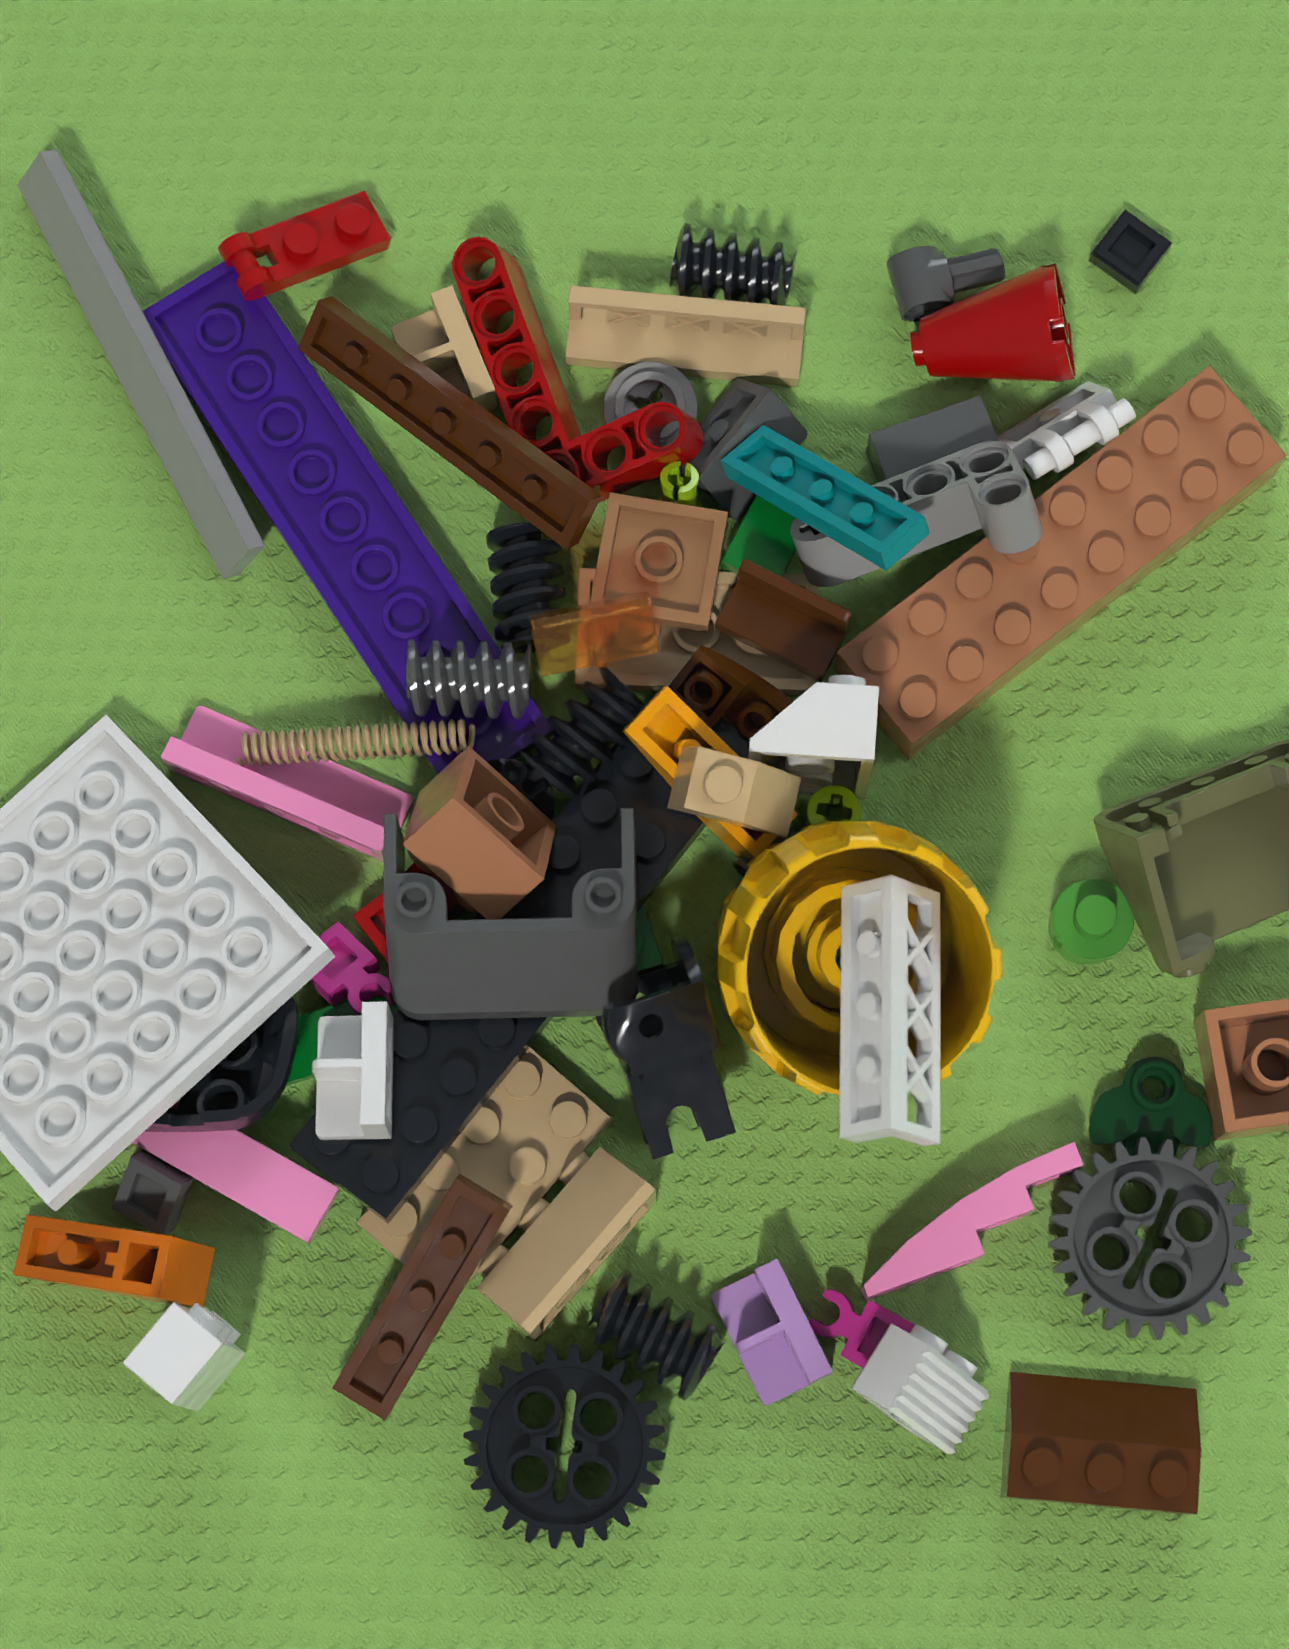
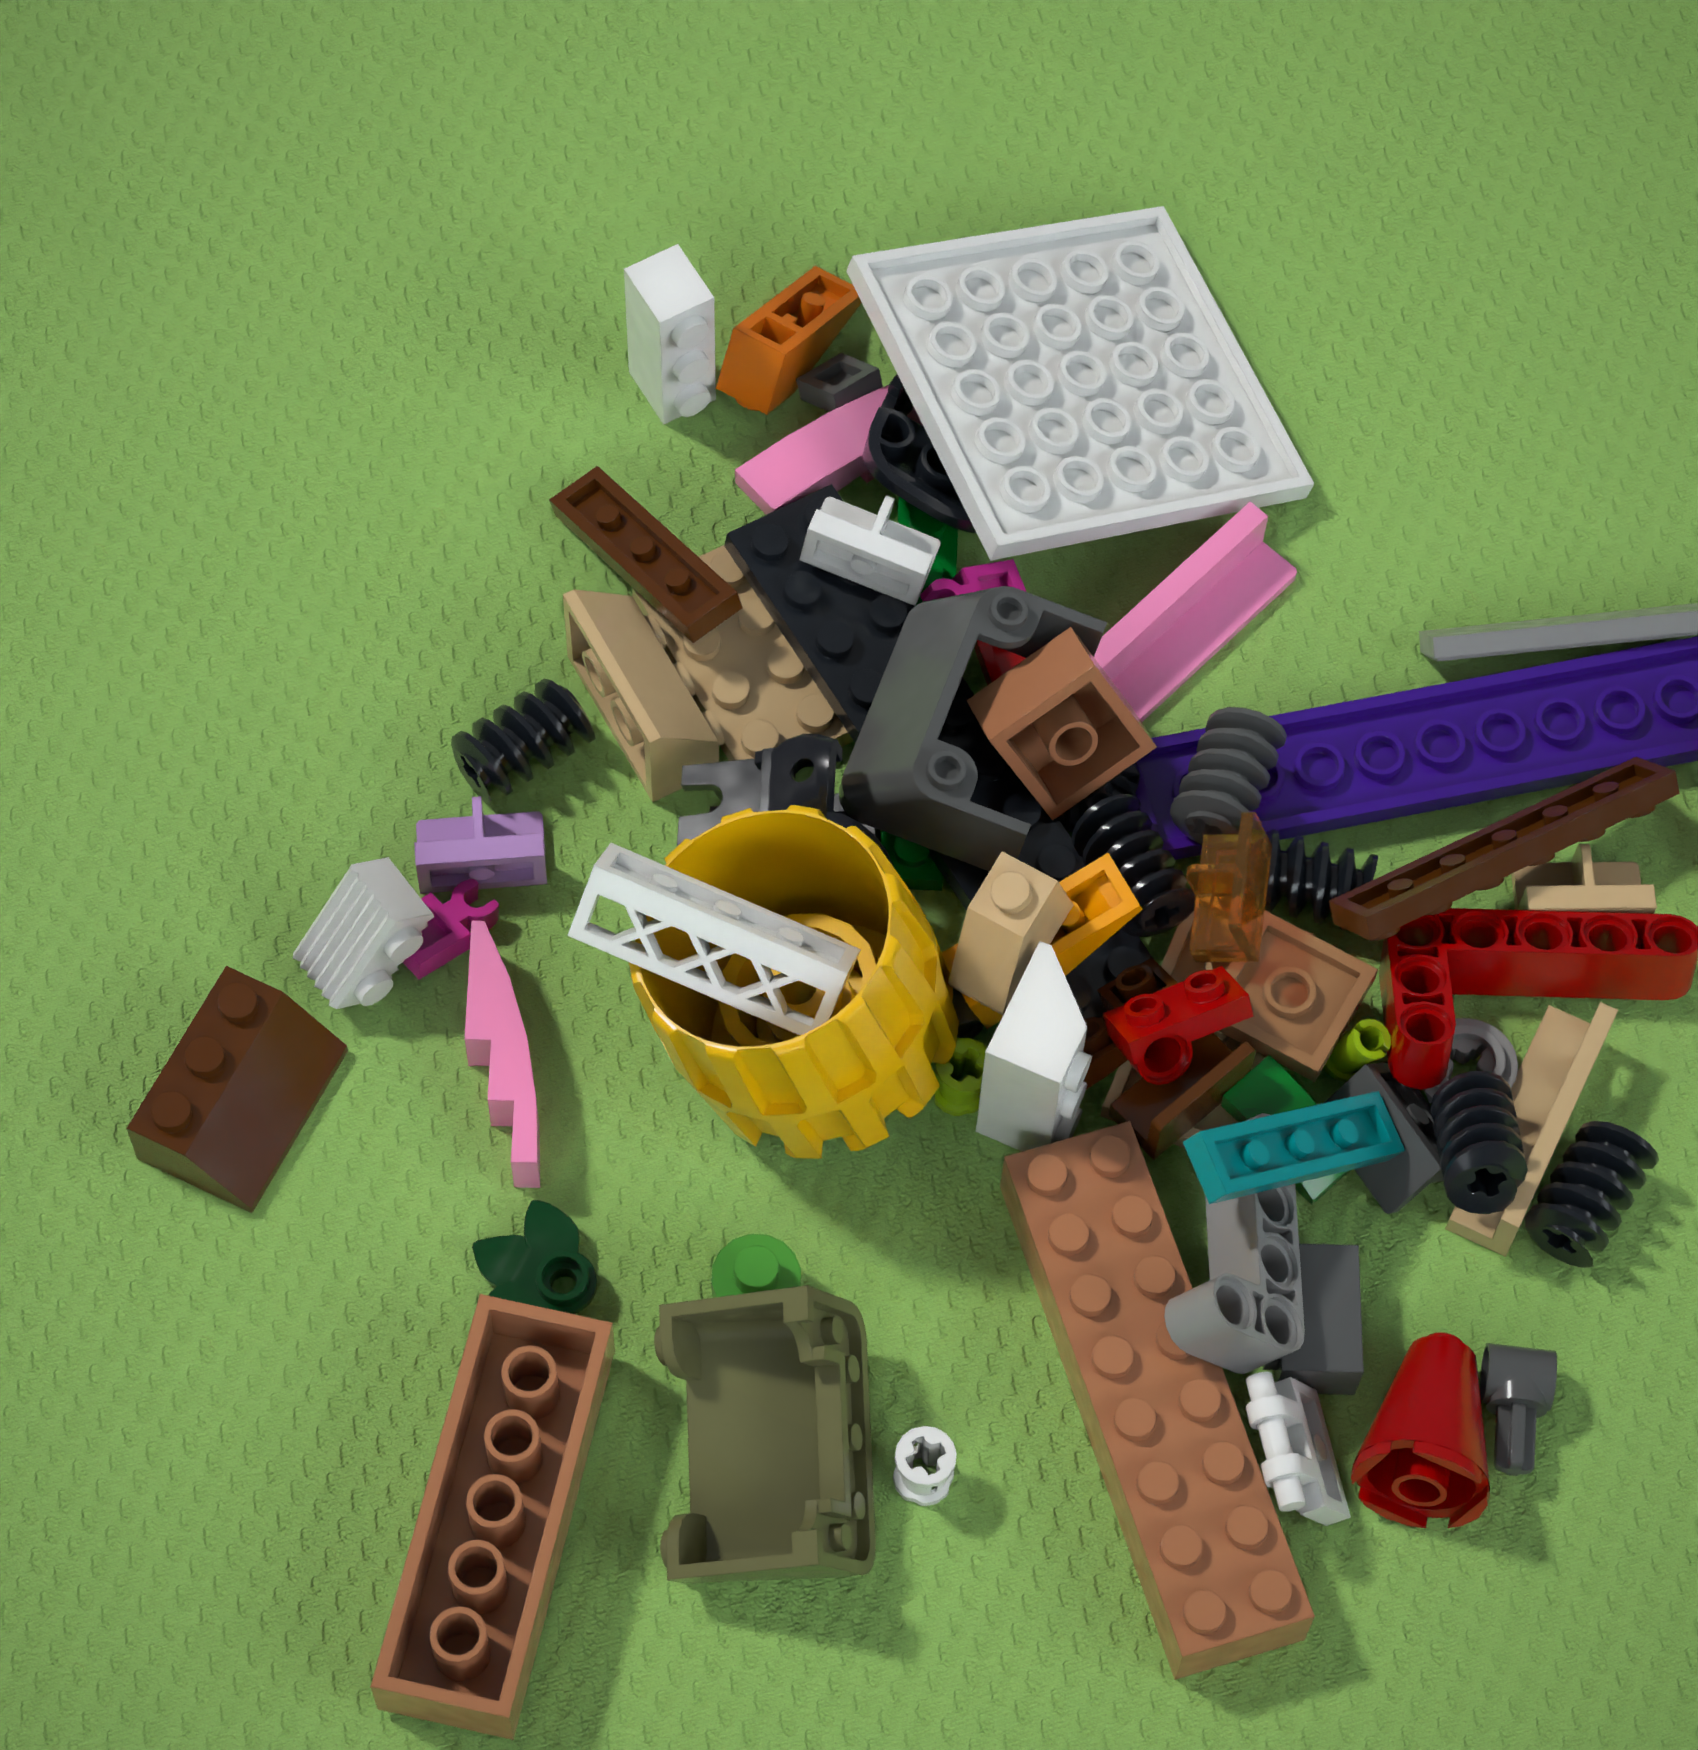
camera: 105 degrees right, 15 degrees down
(292, 739) = (1215, 679): tan piece -> none
(507, 1440) = (456, 634): black gear -> none
(740, 365) = (1478, 1141): none -> black piece
(741, 642) = (1173, 1020): none -> red plate
(1130, 251) = (1487, 1622): black tile -> none
(1188, 708) = (933, 1448): none -> white bush
(1199, 1265) = (367, 1248): dark grey gear -> none

